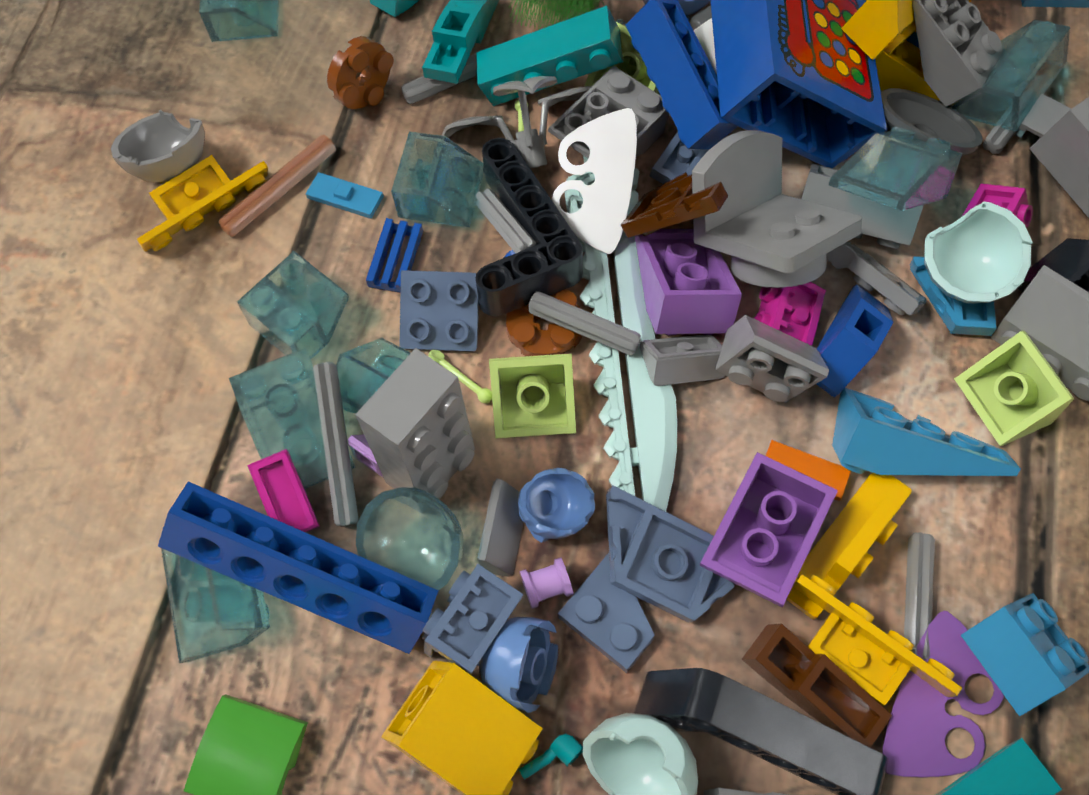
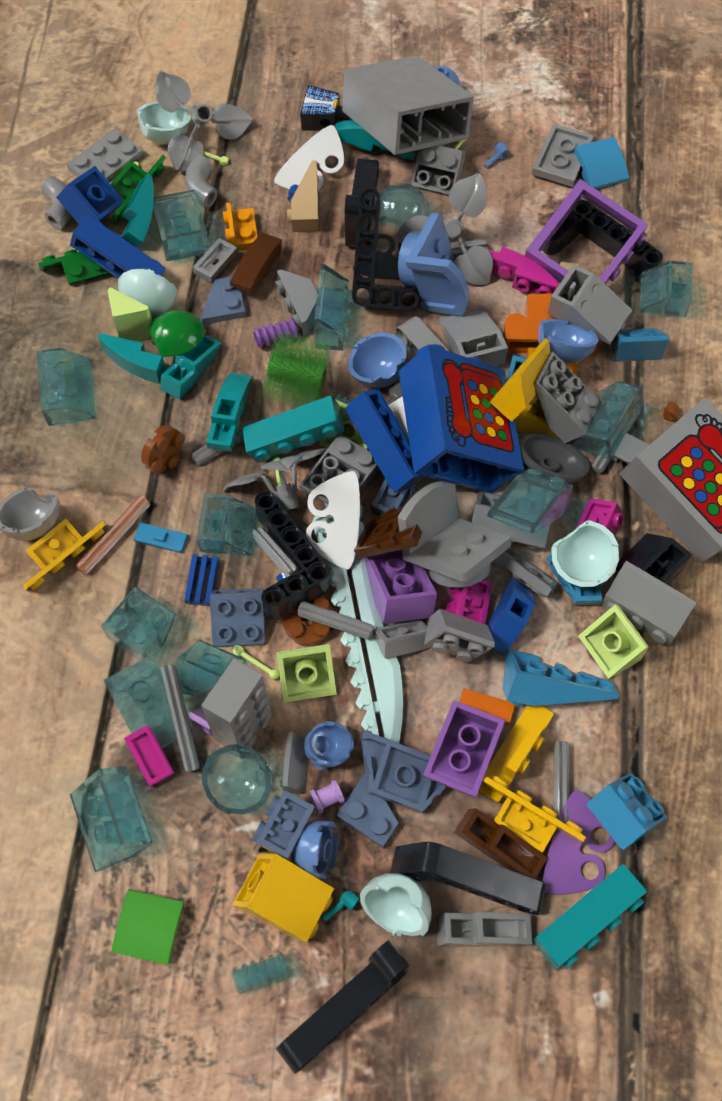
camera: 10 degrees left, 0 degrees up
(297, 567) = (170, 803): blue brick -> none

